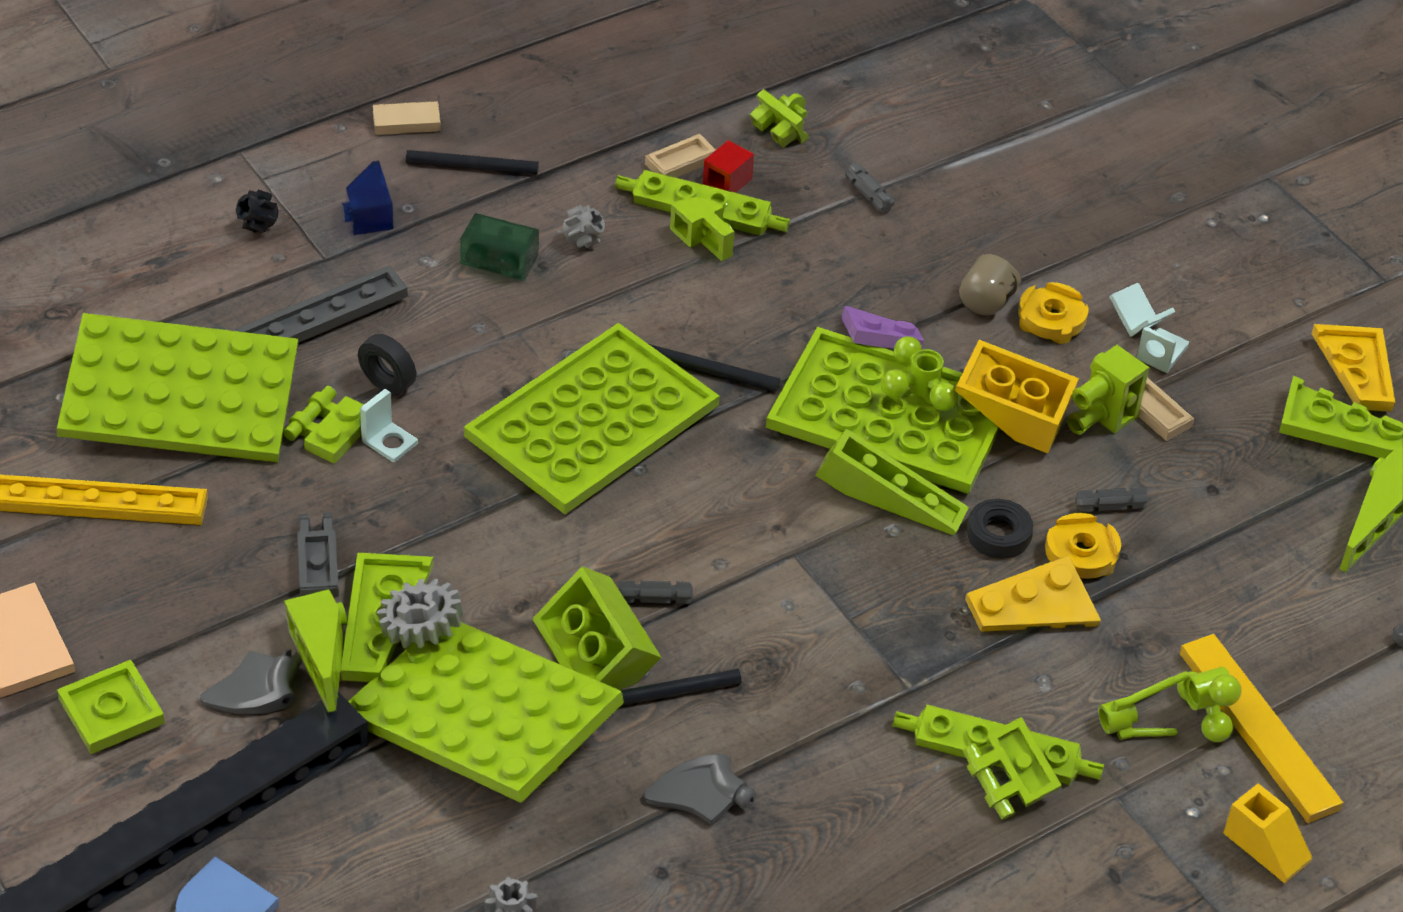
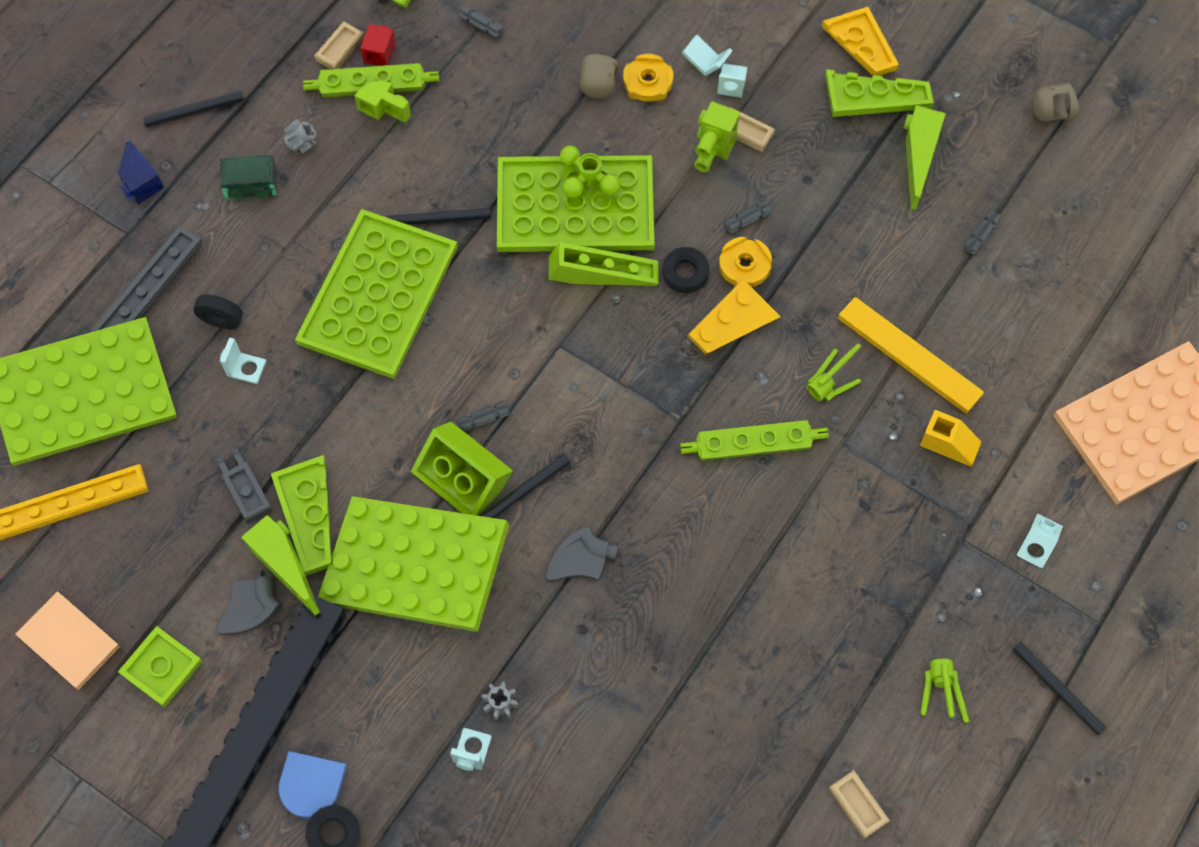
camera: 20 degrees left, 20 degrees up
(257, 211) = (61, 216): black gear -> none
(334, 433) = (206, 377): lime plate -> none
(406, 118) = (128, 88): tan tile -> none
(420, 613) = (339, 508): light grey gear -> none
(876, 330) = (539, 143): medium lavender wing -> none
(1017, 394) = (658, 162): yellow slope -> none
(1021, 760) = (780, 453): lime plate -> none
(1209, 691) = (878, 349): lime piece -> none

